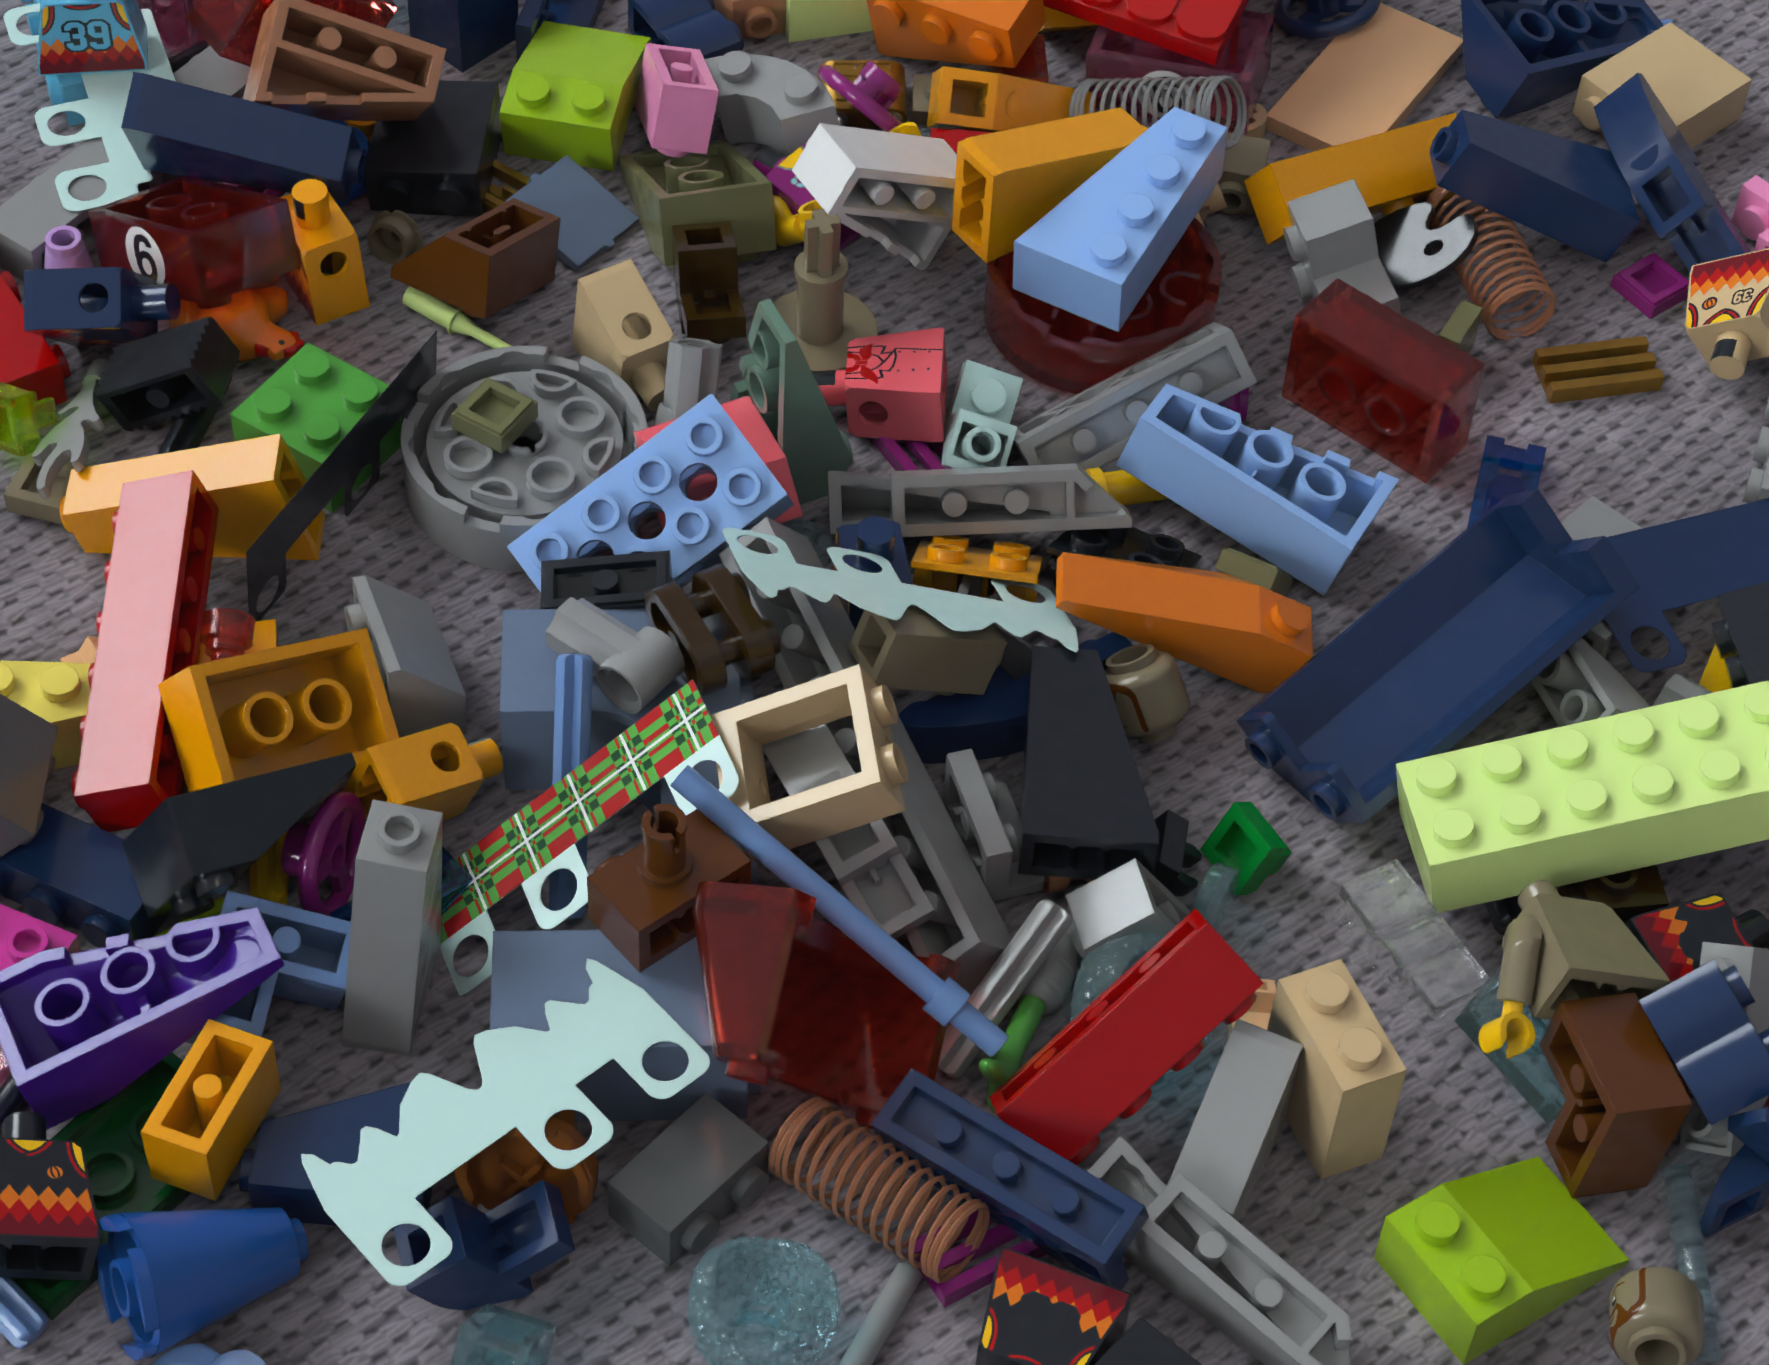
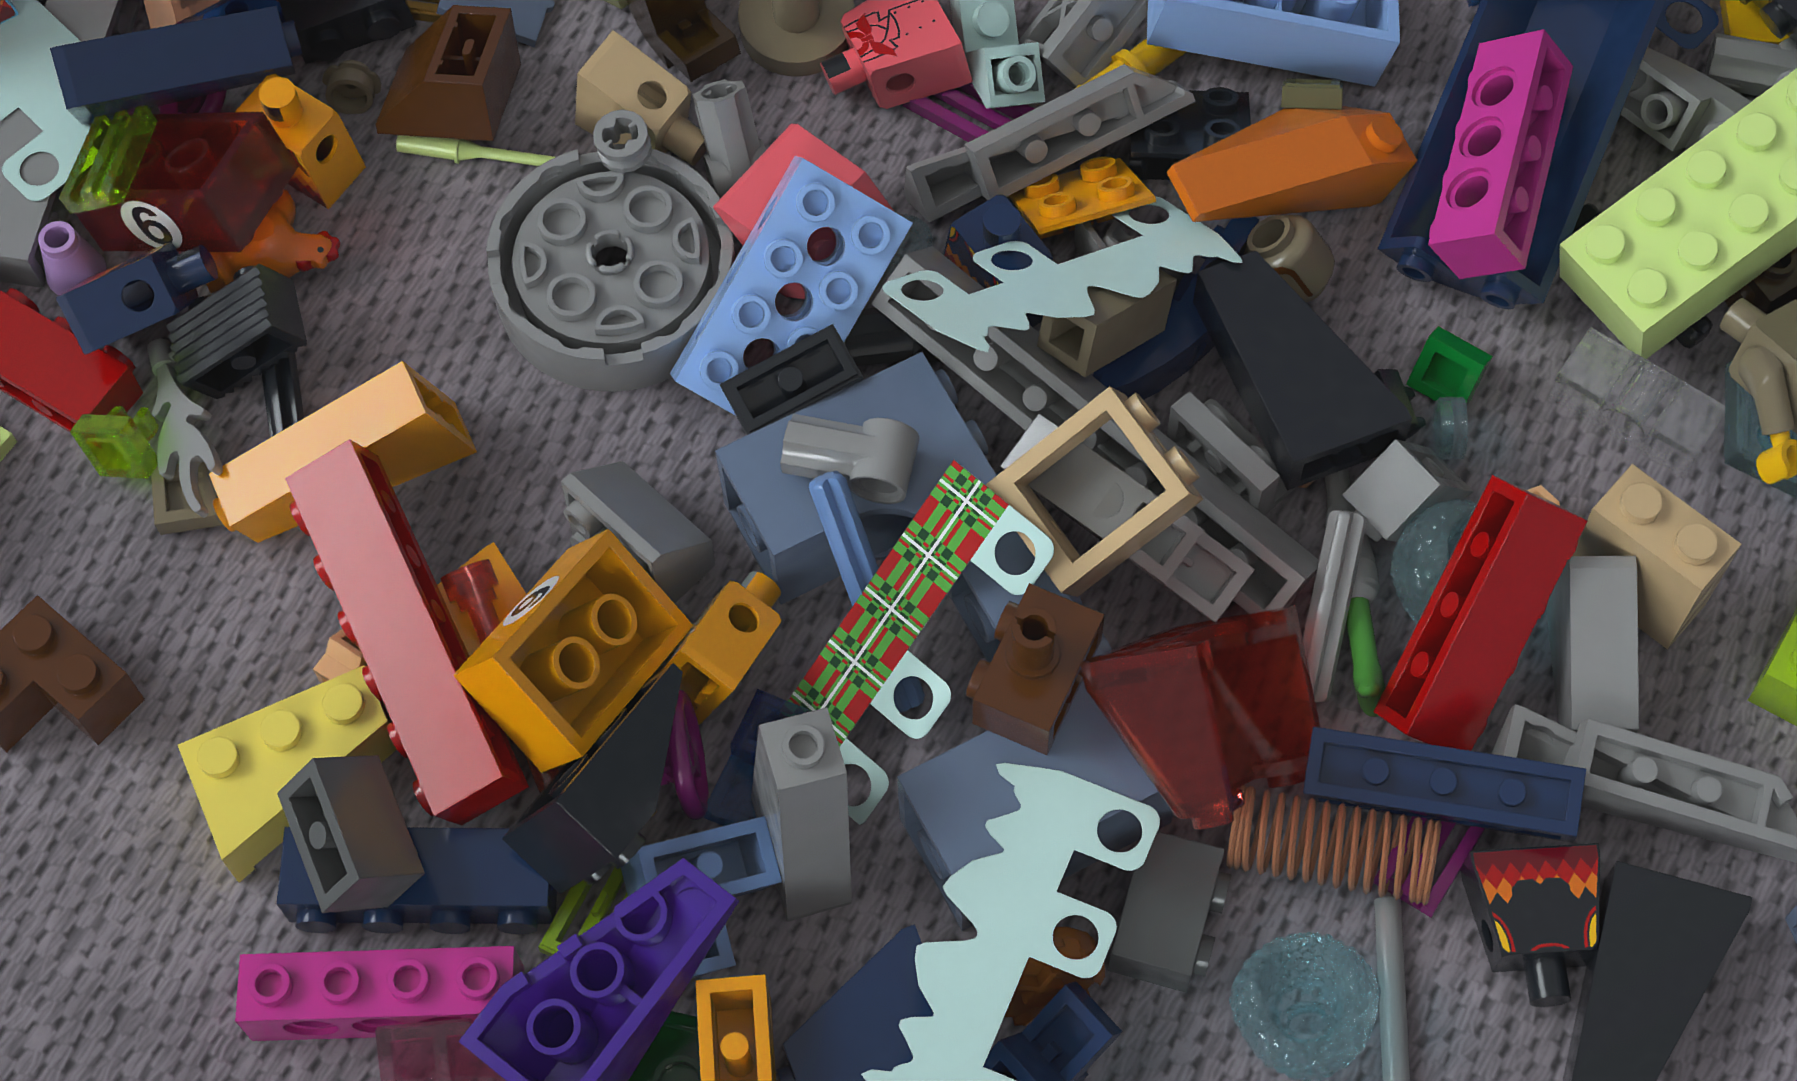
camera: 20 degrees left, 15 degrees up
(140, 193) = (108, 160): none -> clear neon green tile
(313, 407) = (406, 310): bright green brick -> none
(341, 467) = (473, 335): black piece -> none
(494, 415) = (574, 244): olive tile -> none
(588, 351) = (636, 149): none -> light grey bush
(727, 610) = (924, 389): dark brown brick -> none
(791, 404) = (841, 112): sand green wedge -> none
(944, 999) = (1304, 649): medium blue bar -> none
(1385, 671) = (1501, 155): none -> dark pink brick

